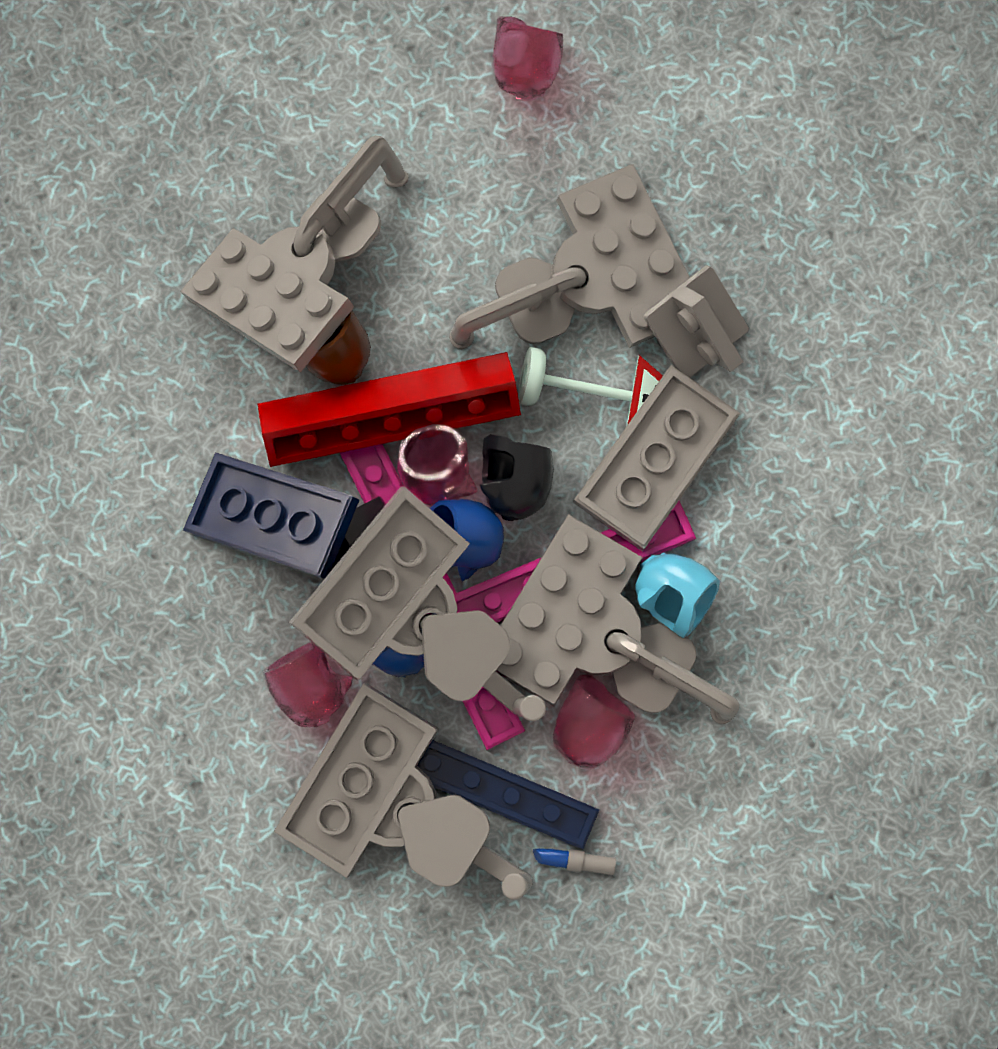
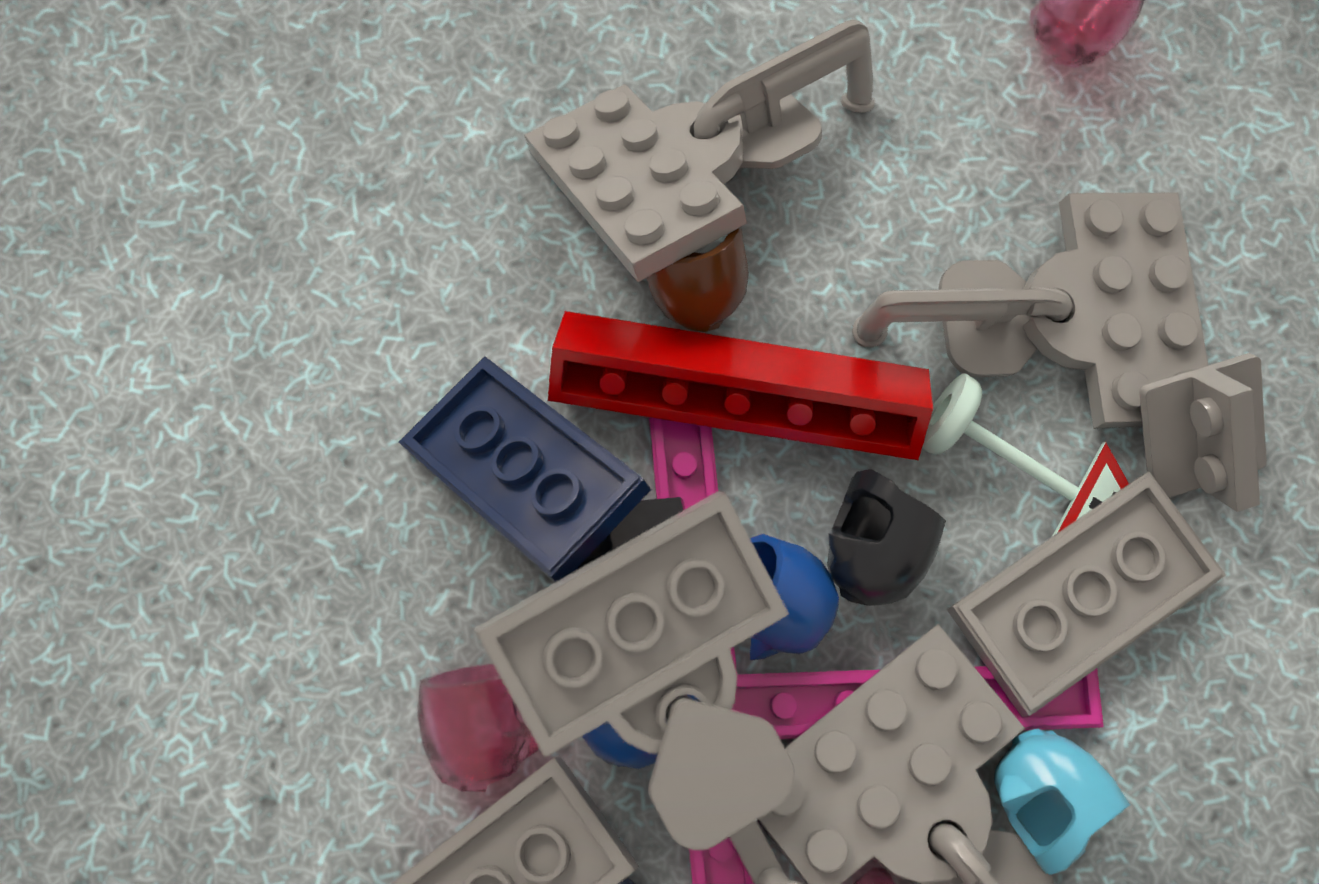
camera: 20 degrees right, 5 degrees down
(435, 464) = (777, 482): clear pink piece -> none

